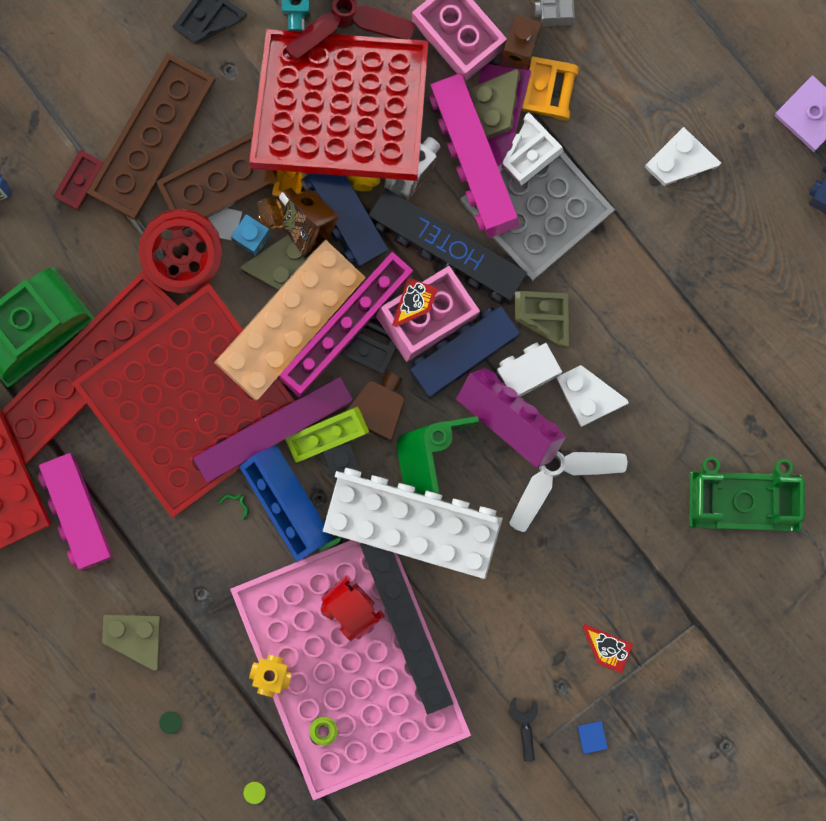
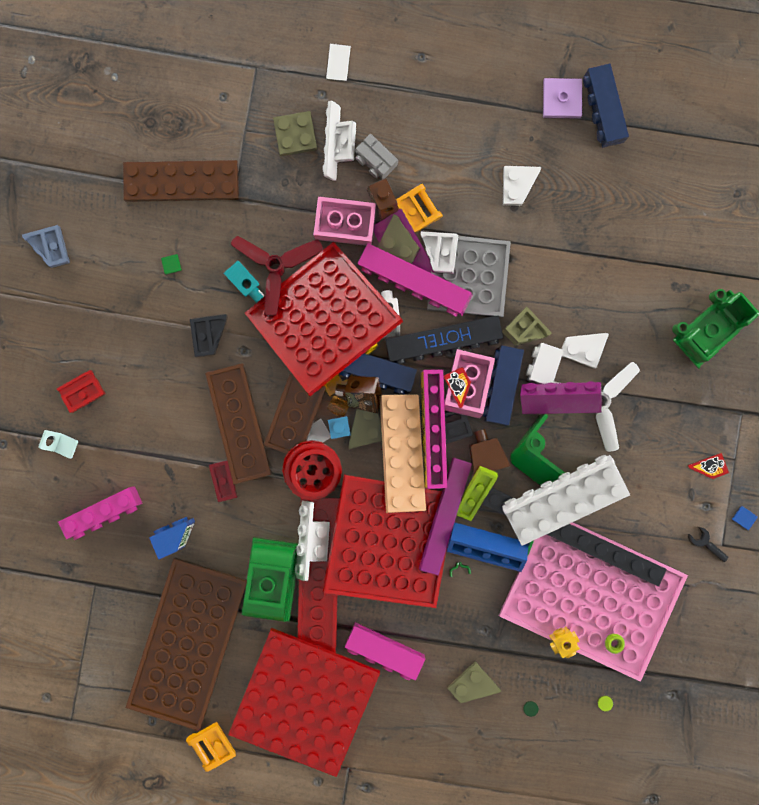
camera: 50 degrees left, 5 degrees up
(112, 324) = (312, 540): none -> white bracket
(351, 609) = (574, 571): red brick -> none

